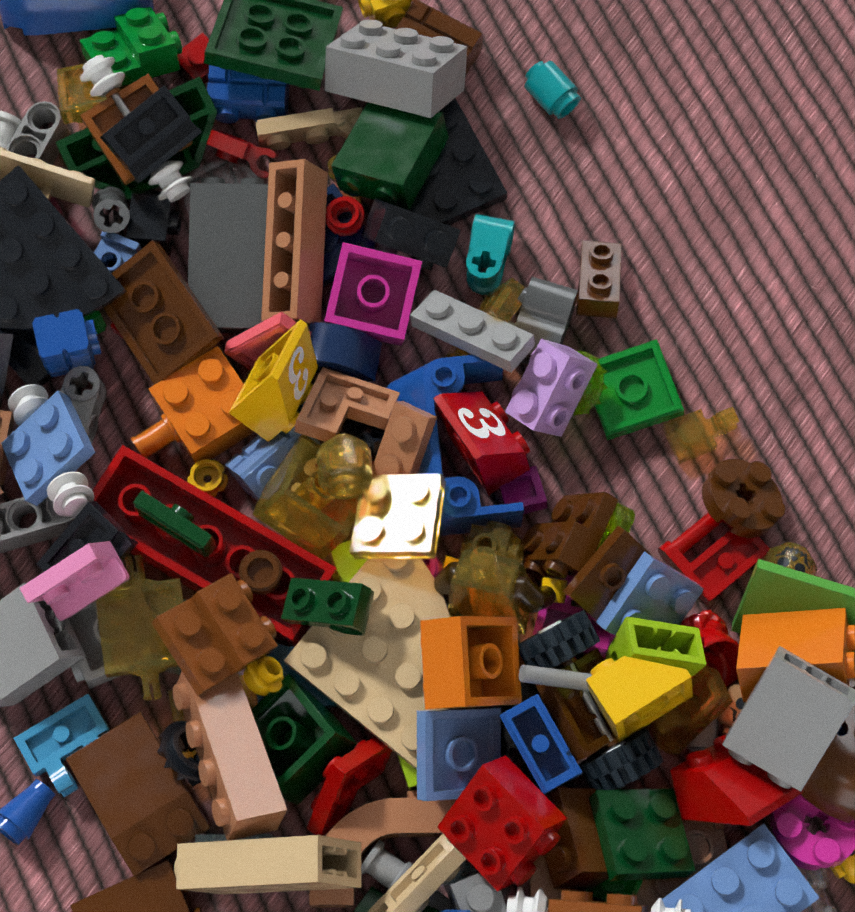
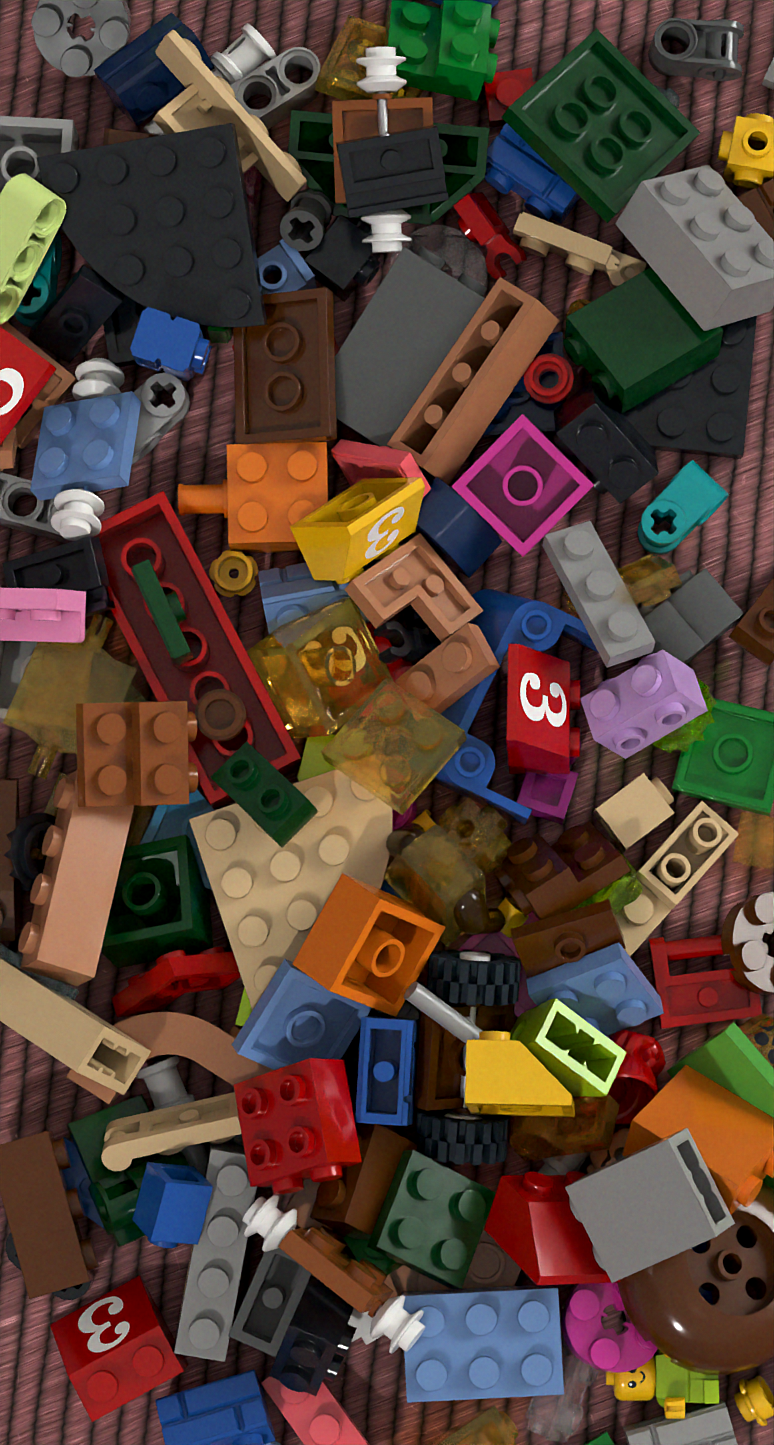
camera: 35 degrees right, 10 degrees up
(264, 676) = (159, 824): yellow plate -> none
(344, 466) = (370, 660): clear yellow head -> none
(591, 465) = (635, 811): none -> tan brick
(646, 486) = (674, 871): none -> tan slope

